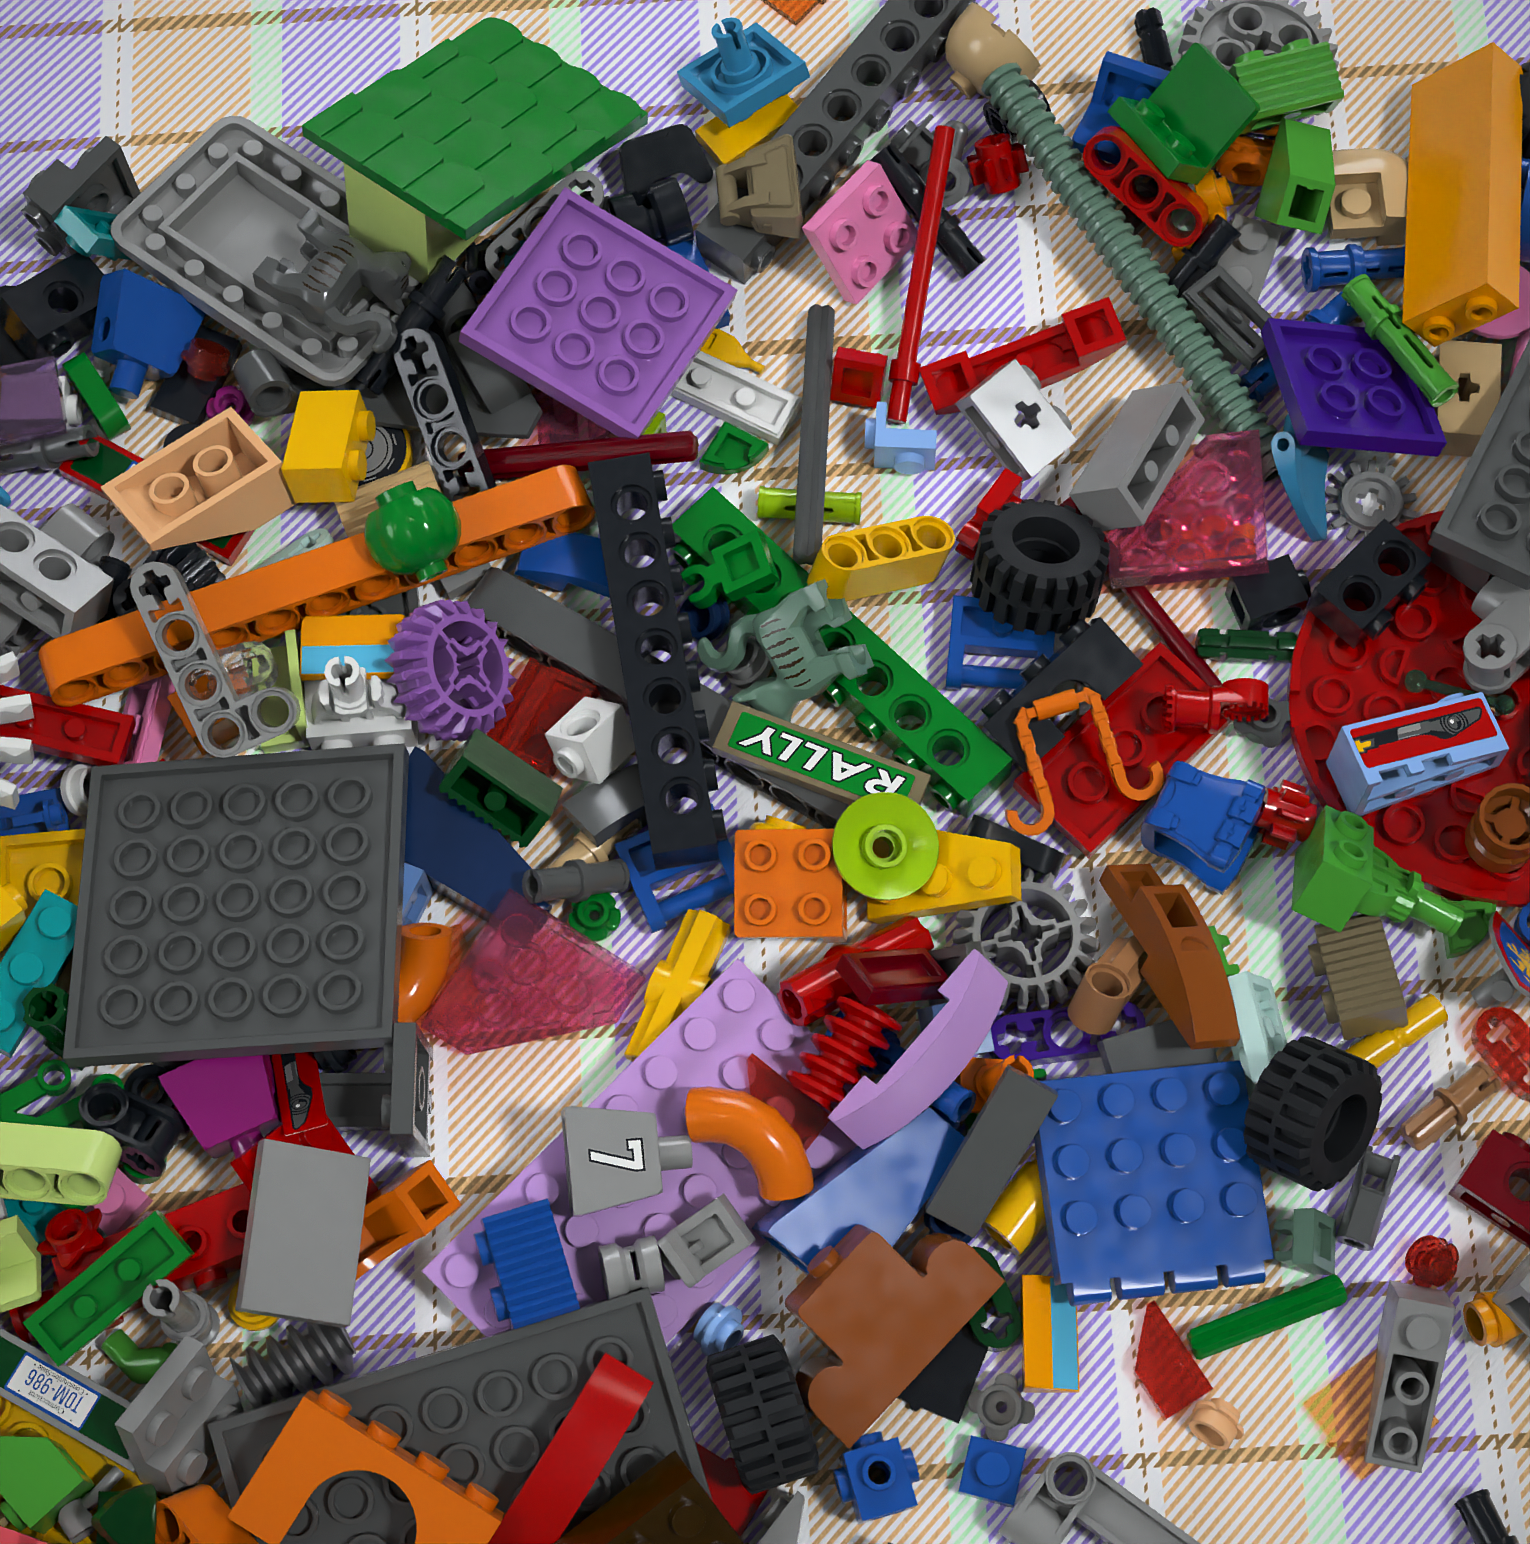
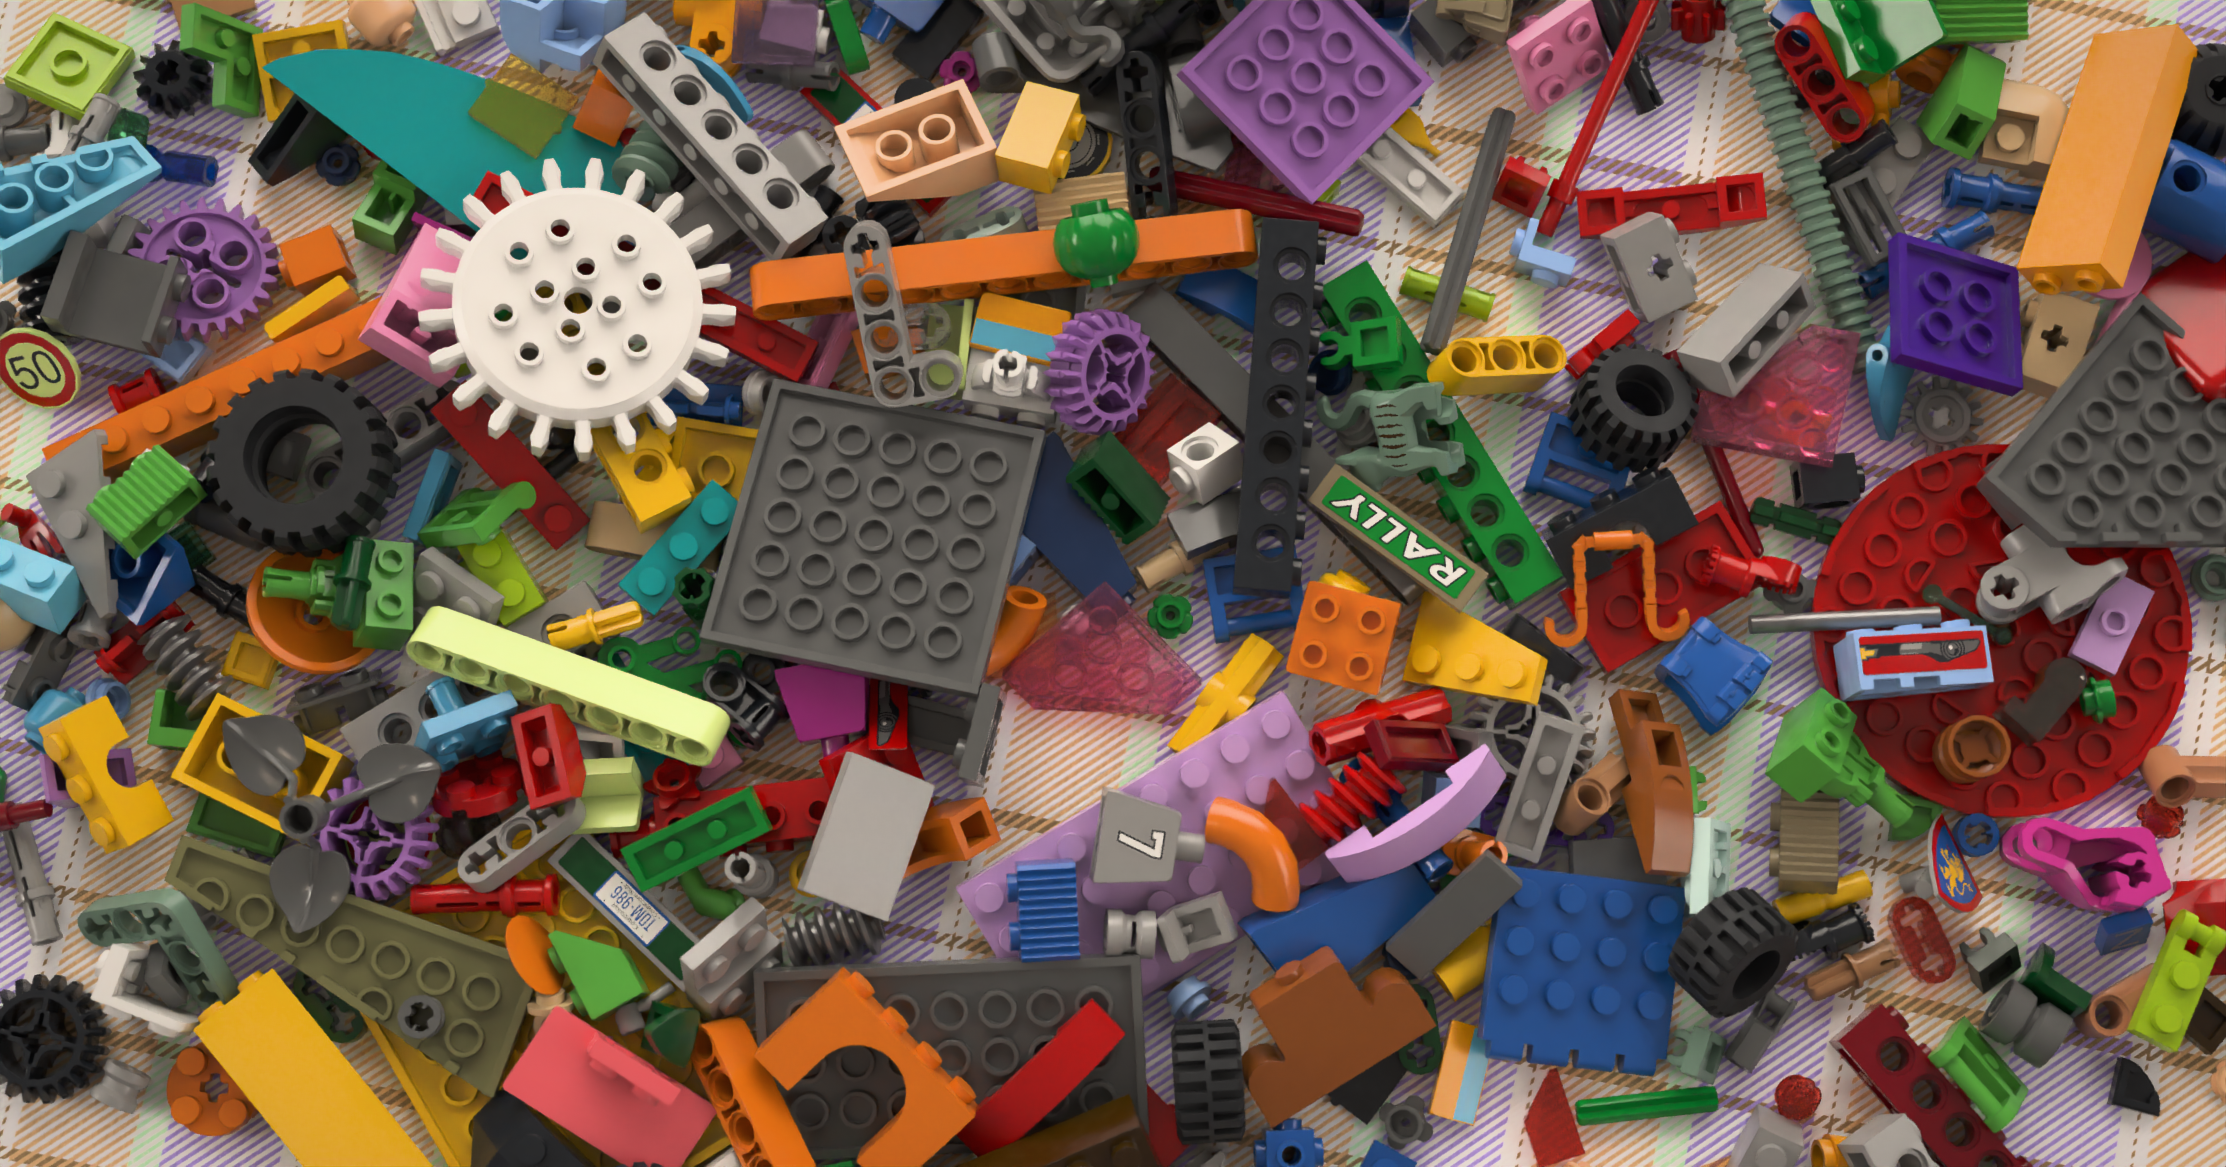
camera: 15 degrees right, 10 degrees up
(206, 359) = (950, 25): clear red plate -> none
(575, 880) = (1162, 586): dark grey pin -> none
(733, 451) = (1392, 225): green tile -> none
(910, 840) = (1455, 634): lime dish -> none
(1047, 986) = (1539, 785): none -> light grey plate
(1286, 815) = (1785, 684): red gear -> none
(1316, 734) = (1843, 620): none -> flat silver bar
(1362, 579) = (1913, 492): black brick -> none
(1385, 324) = (2002, 261): bright green pin -> none
(1420, 1069) = (1834, 933): none -> black connector

